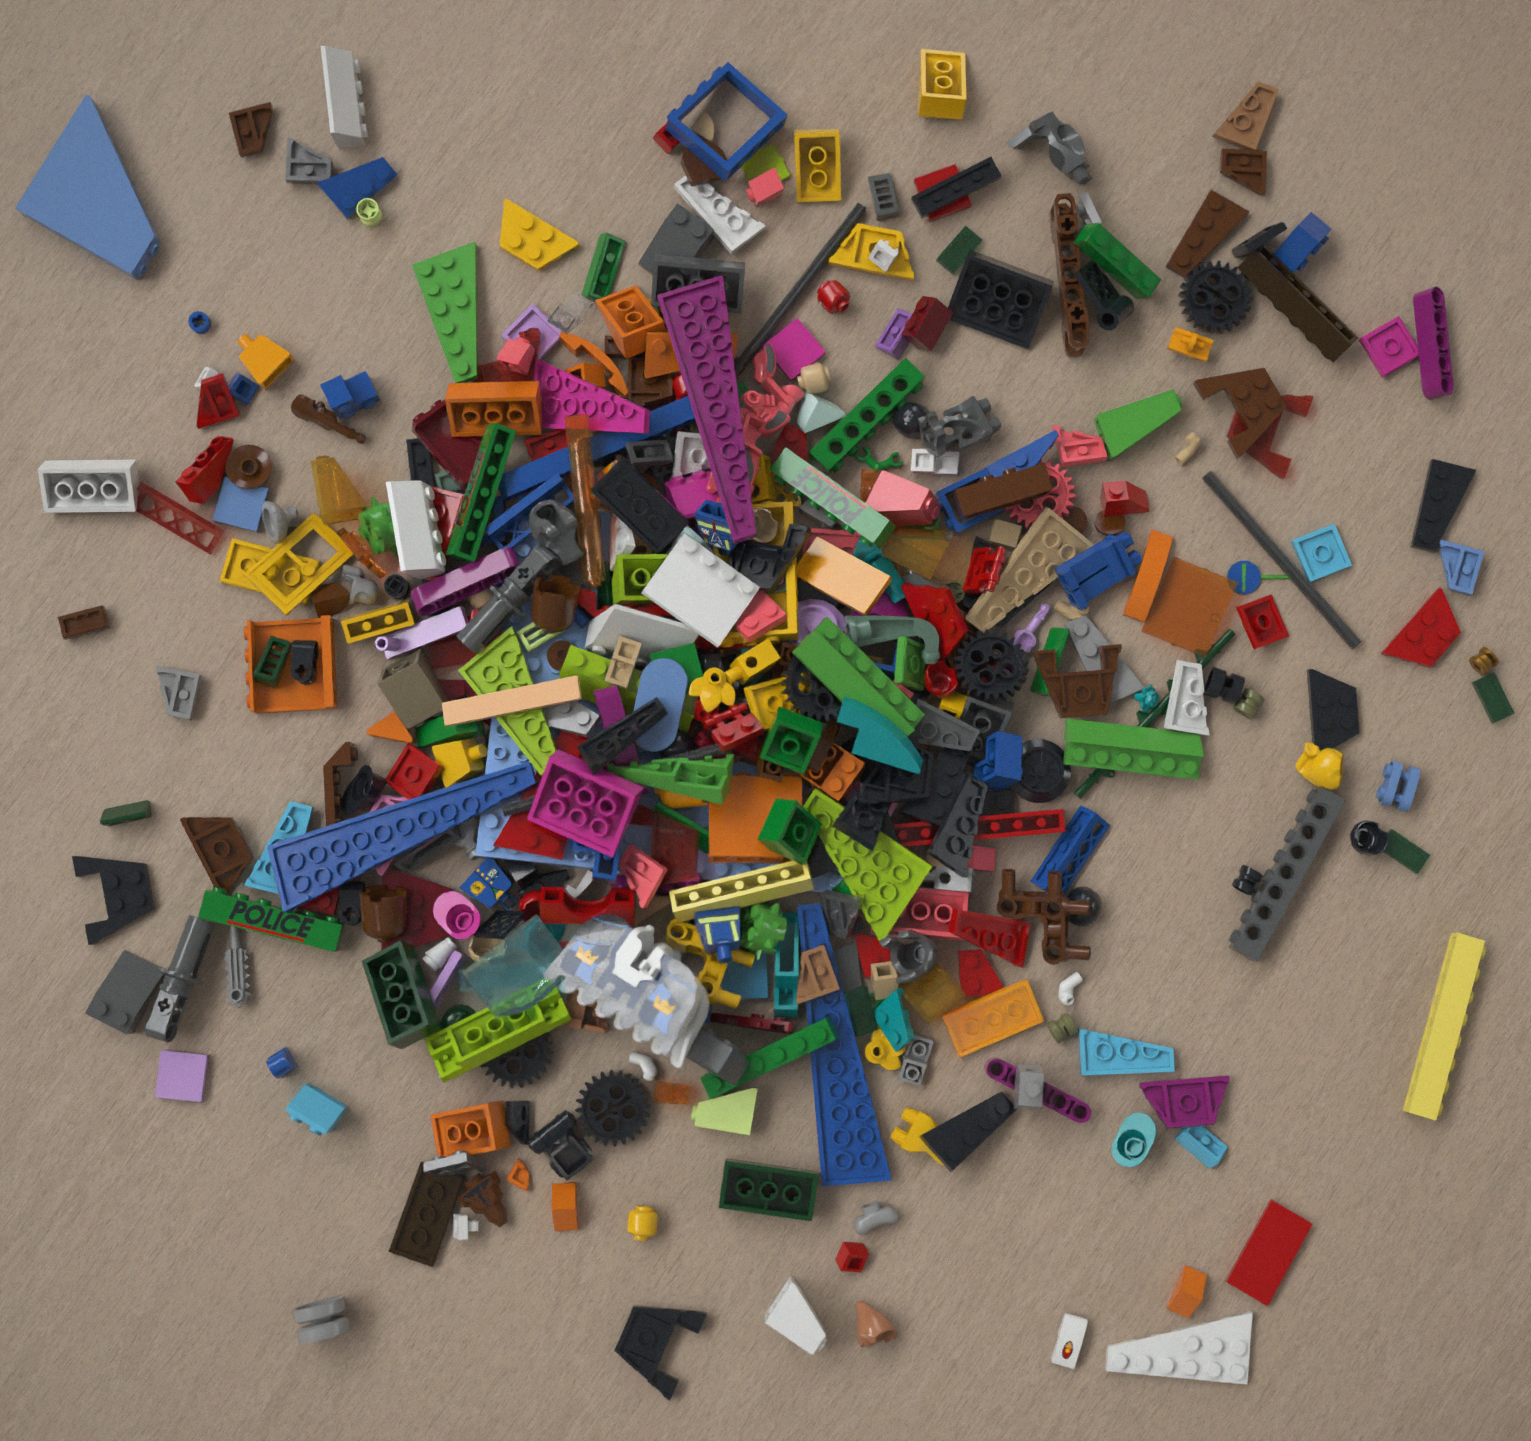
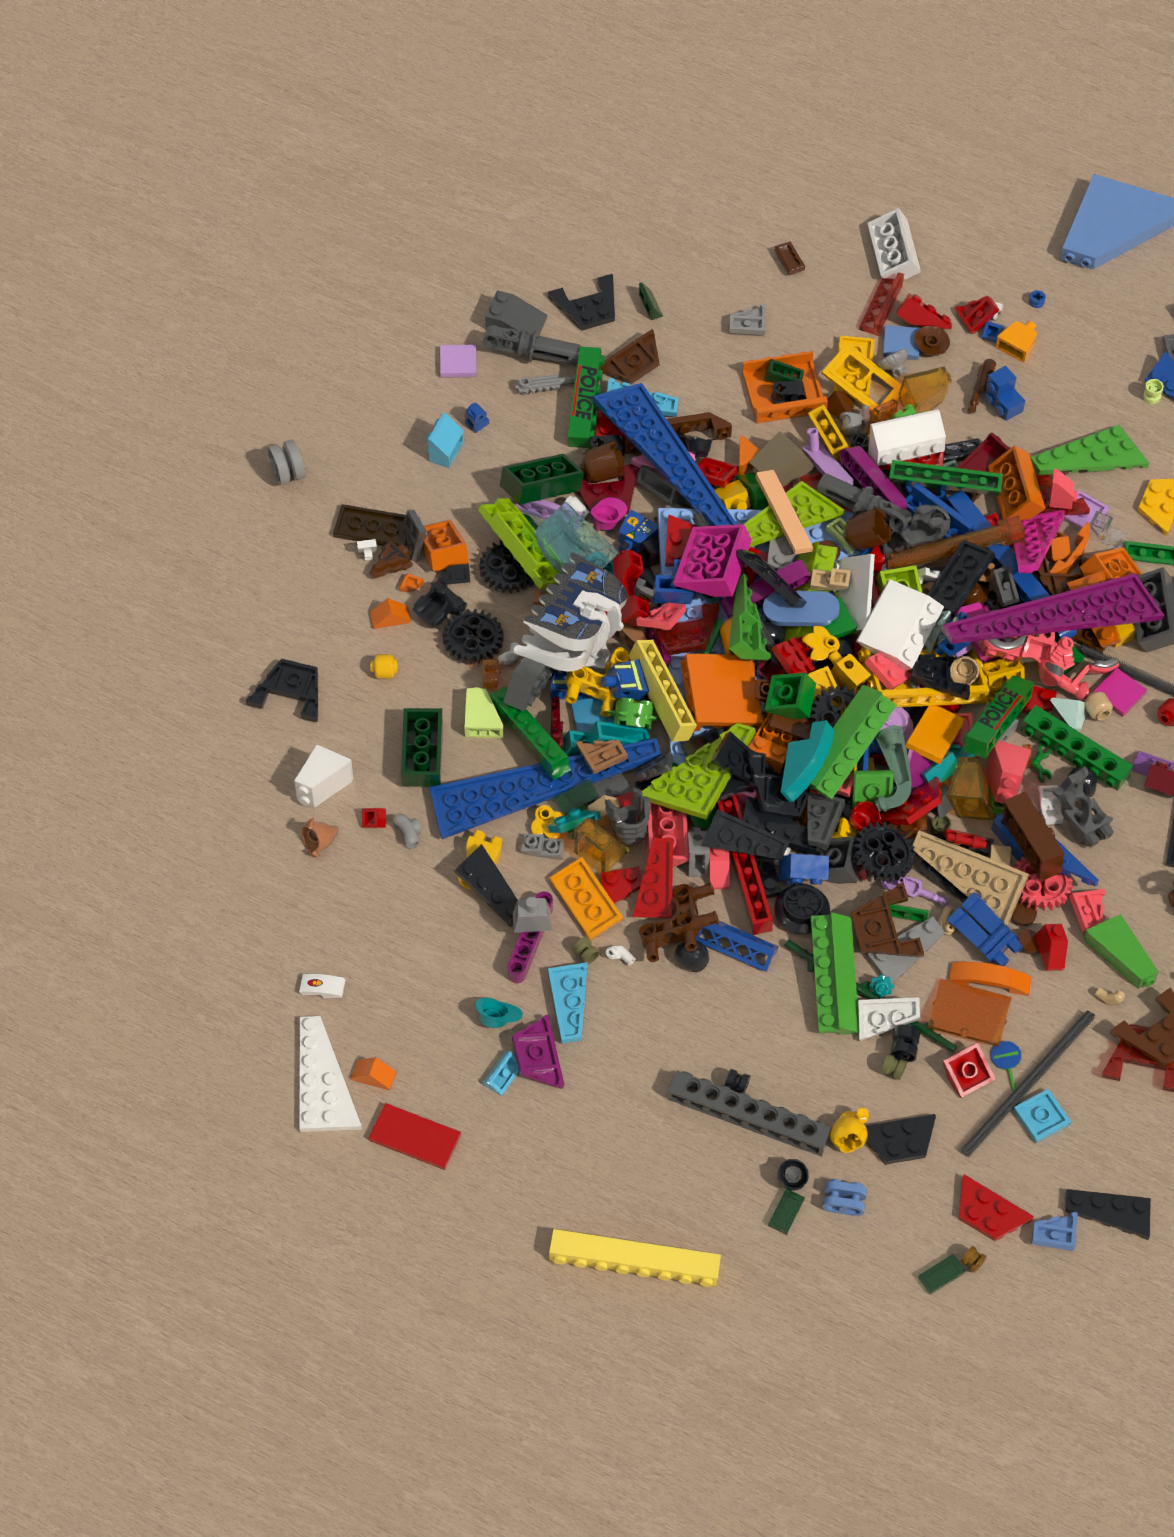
camera: 85 degrees right, 25 degrees down
(511, 915) = (606, 536): black window -> none
(790, 830) = (716, 708): green slope -> none

